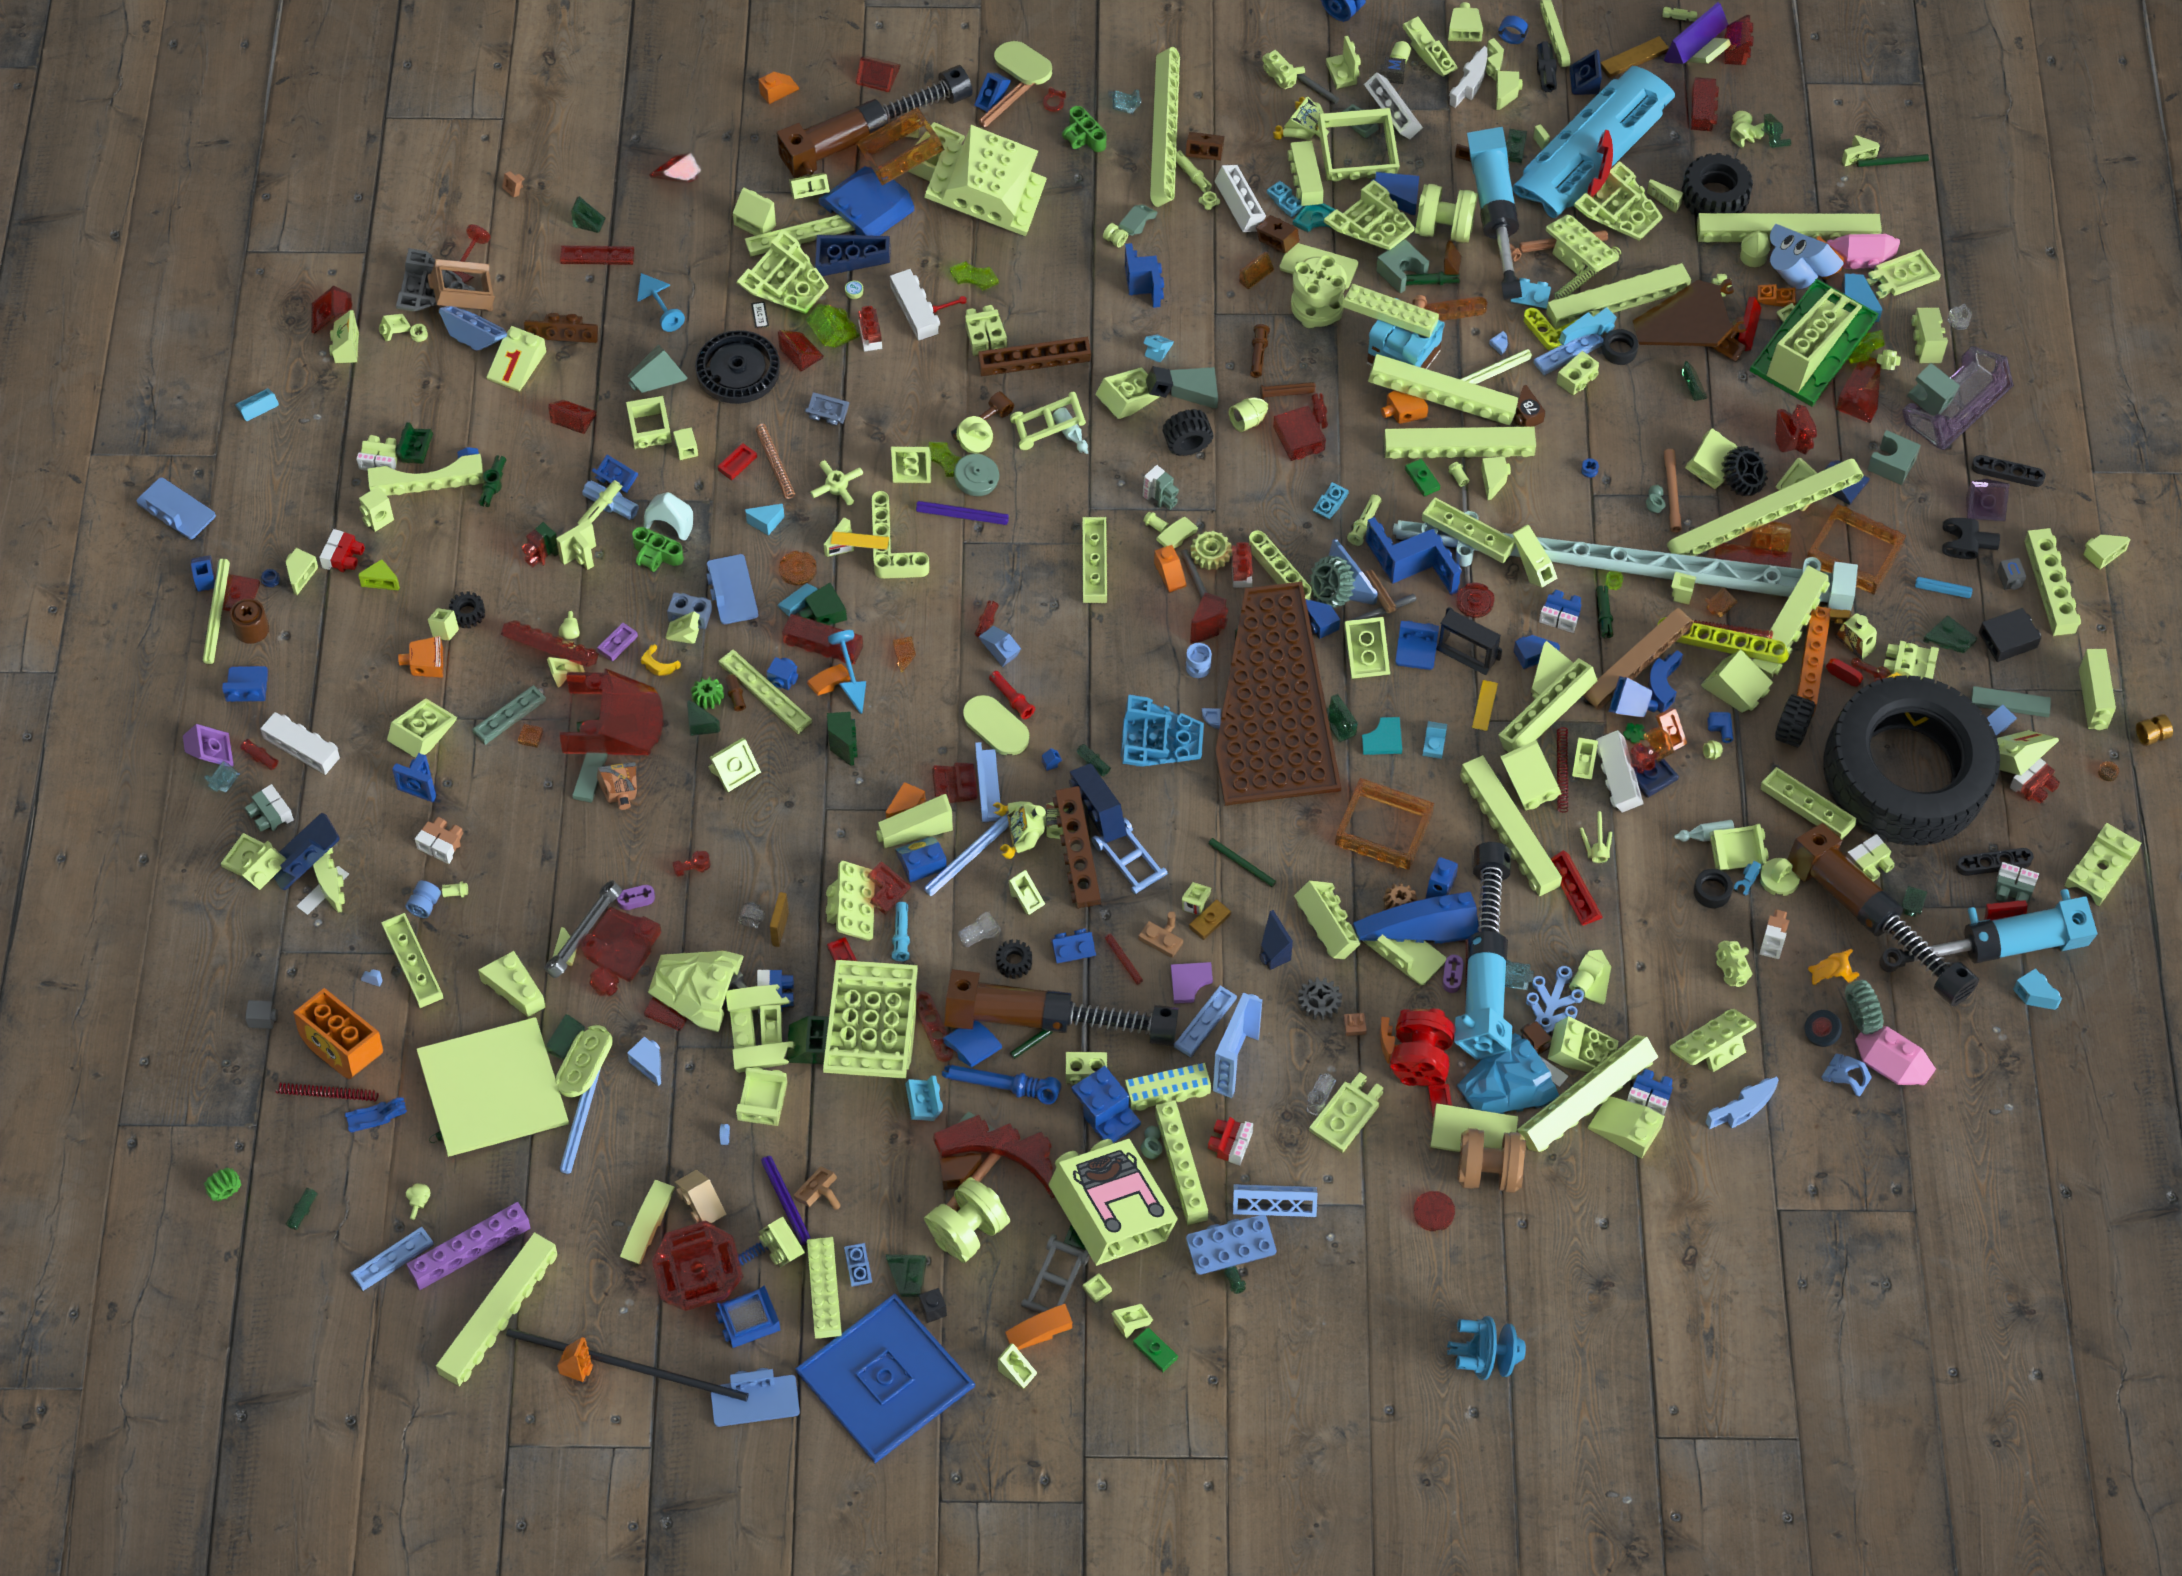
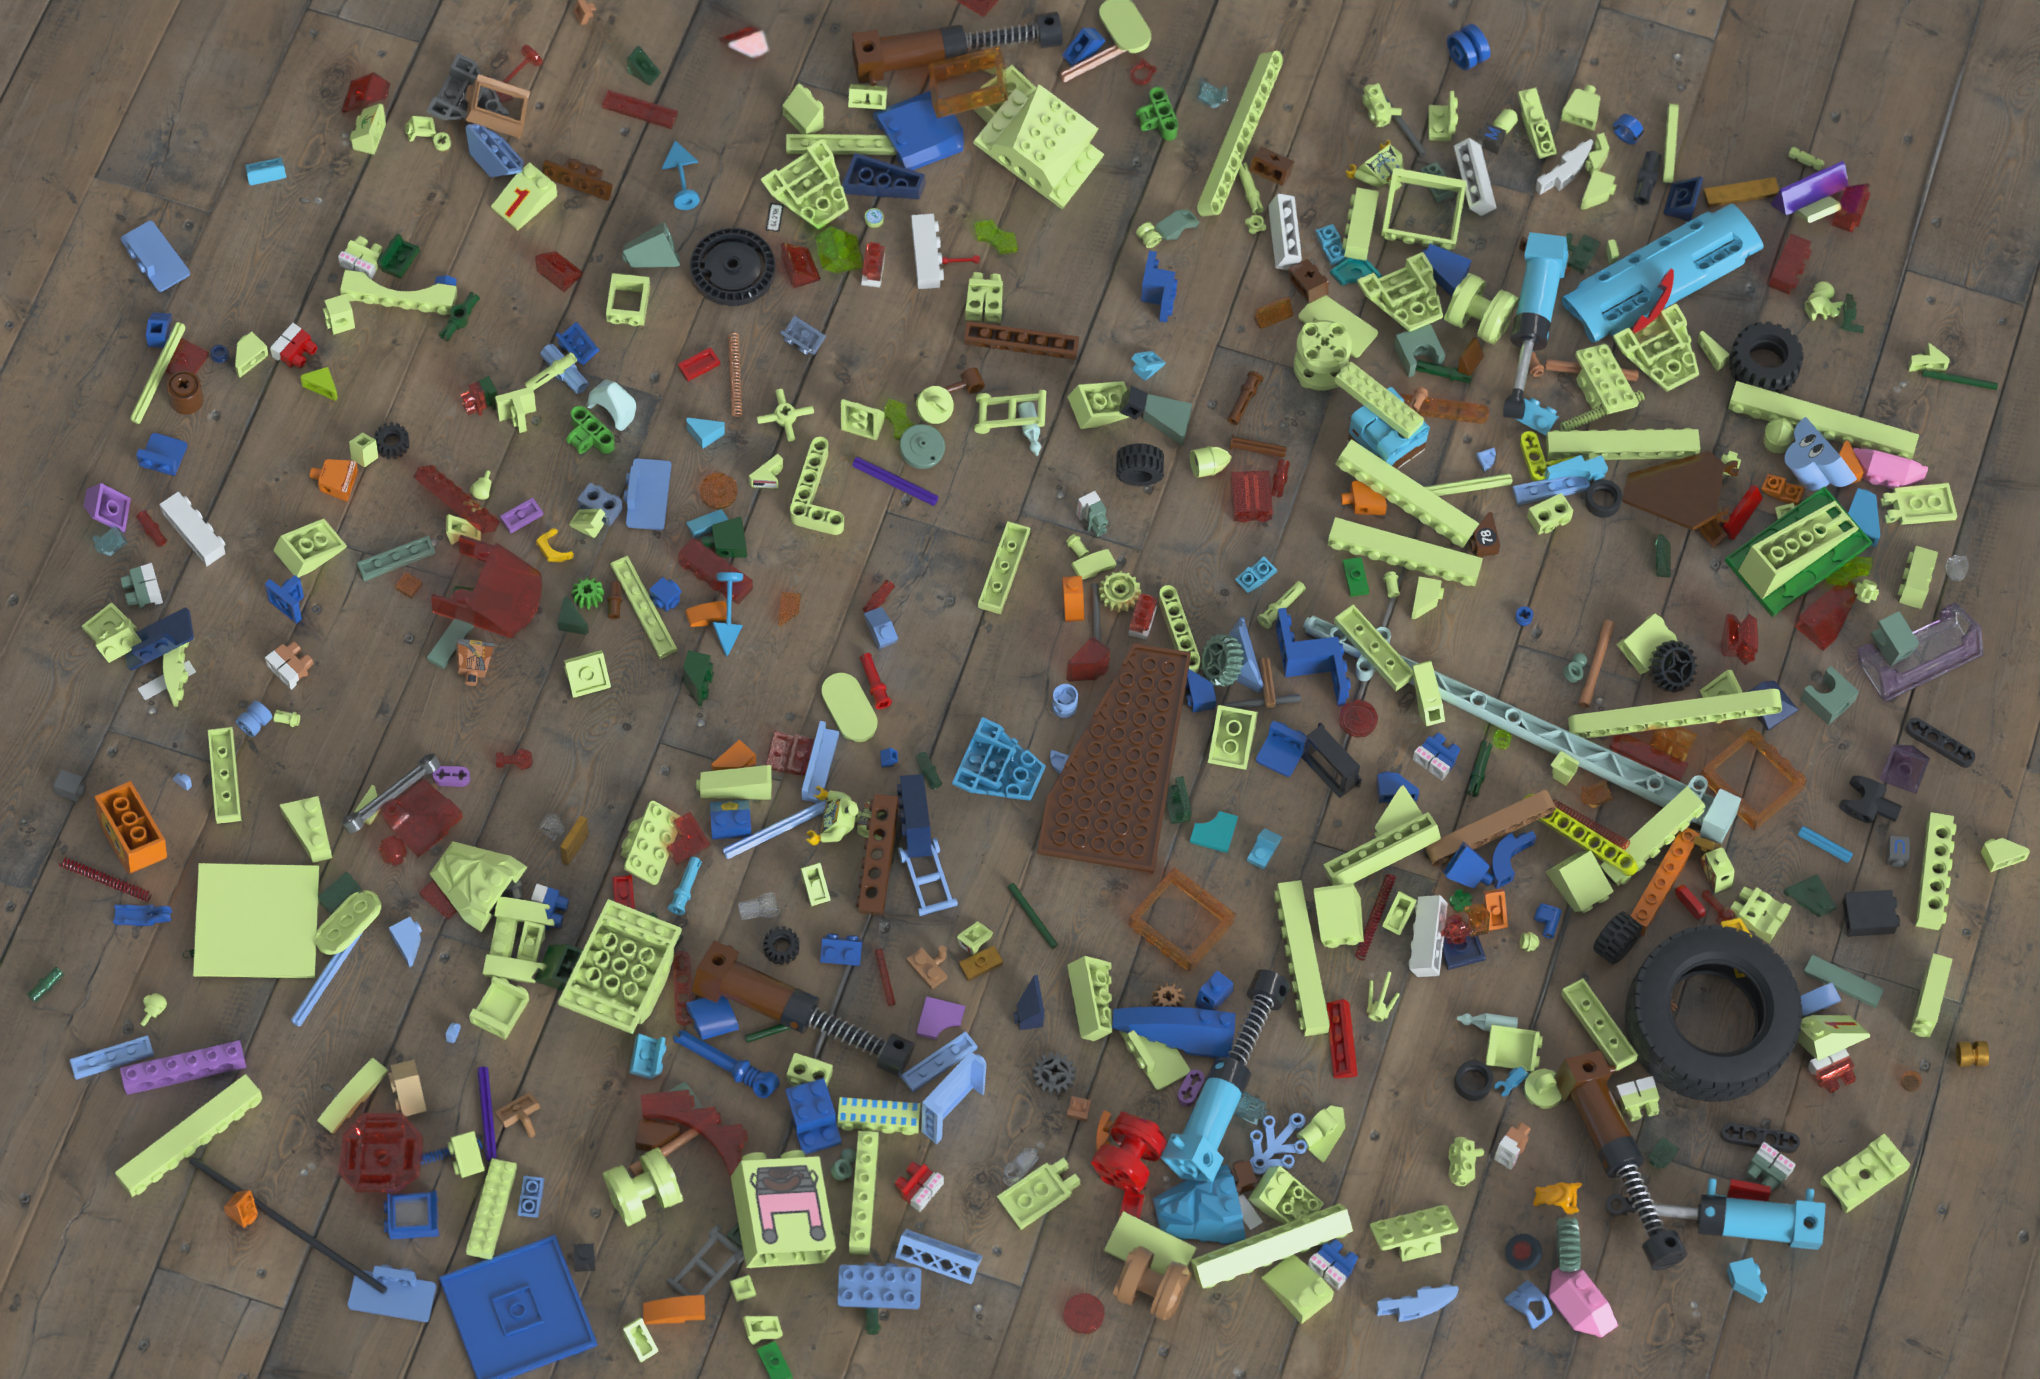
camera: 15 degrees right, 5 degrees up
(685, 443) = (655, 331): yellowish green brick -> none
(859, 540) = (784, 482): yellow sticker -> none
(908, 1273) = (573, 1219): clear green wing -> none
(1485, 705) = (1326, 828): yellow sticker -> none

